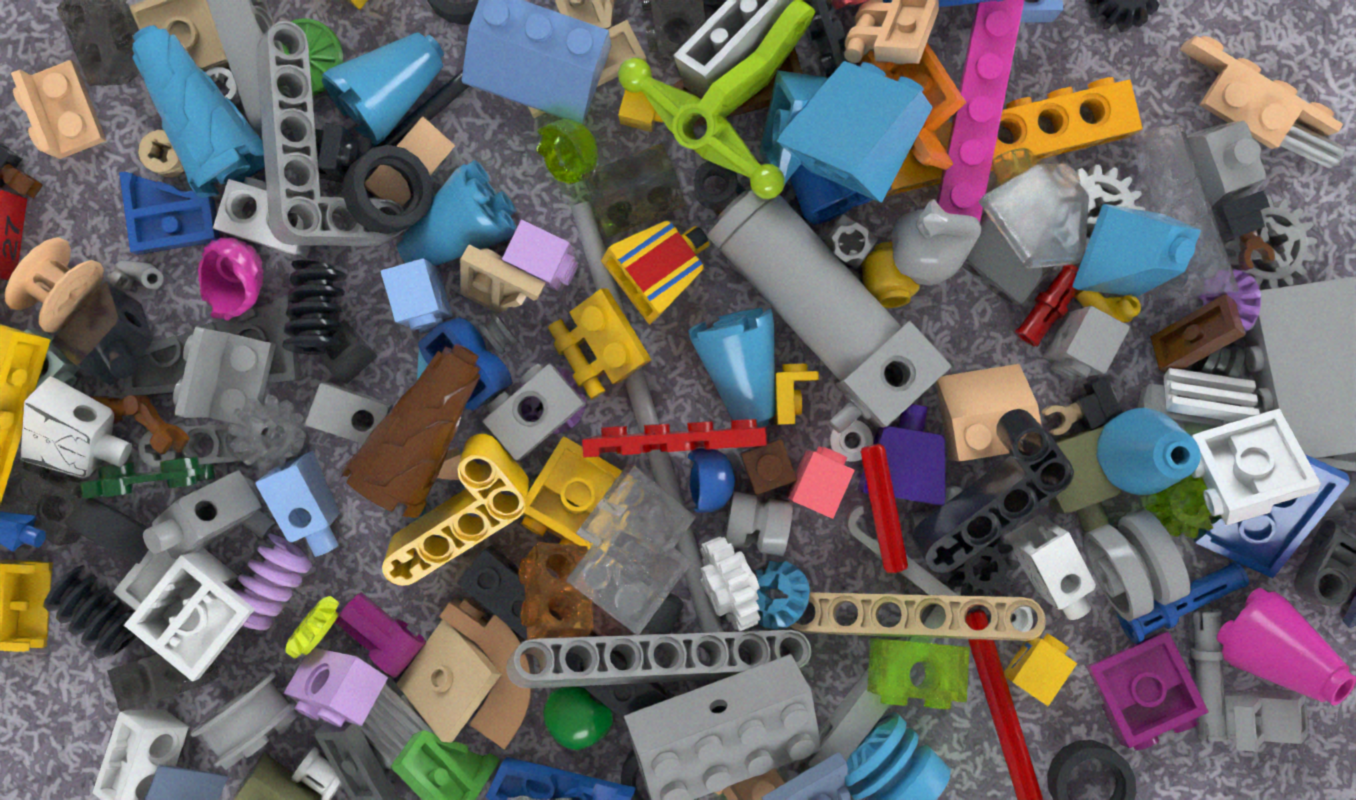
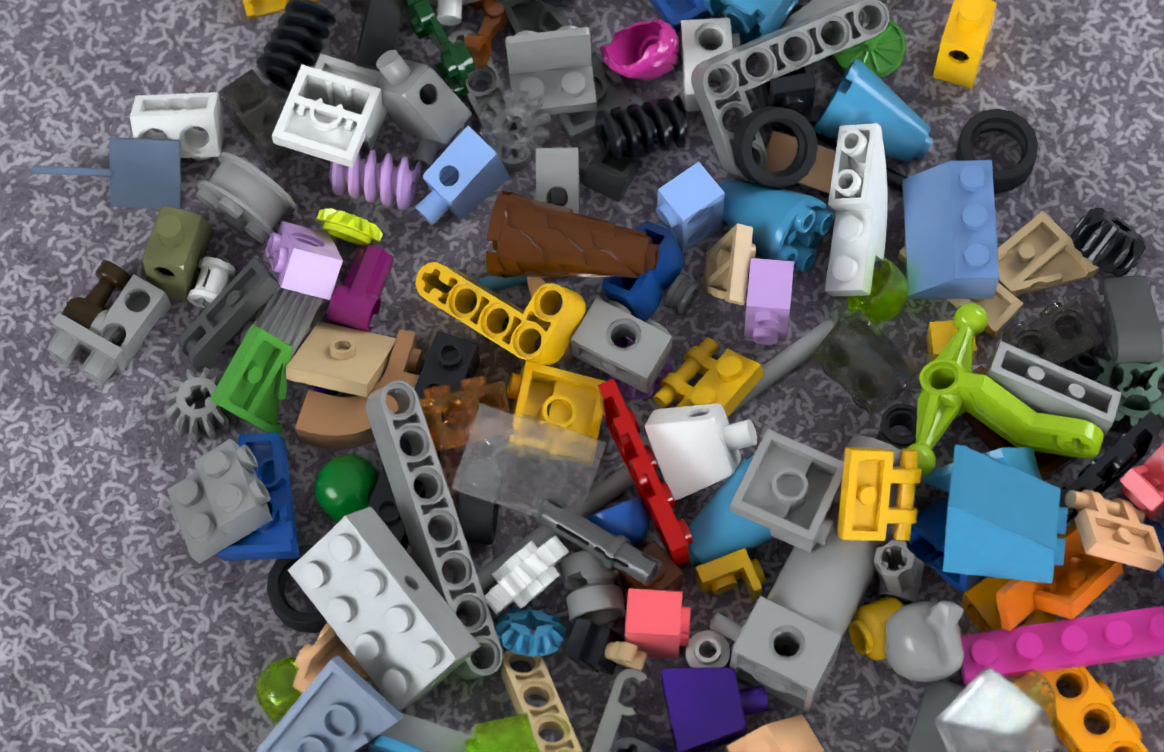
camera: 75 degrees right, 20 degrees down
(479, 133) = (860, 205): none -> white slope
(656, 266) = (804, 406): torso -> none
(663, 380) = (697, 445): none -> white torso
(721, 514) = (612, 549): none -> dark grey pin
(757, 312) = (790, 491): none -> light grey plate
(787, 242) = (866, 494): none -> yellow plate
(818, 537) = (601, 648): none -> black piece
(884, 508) = (652, 690): red axle -> none

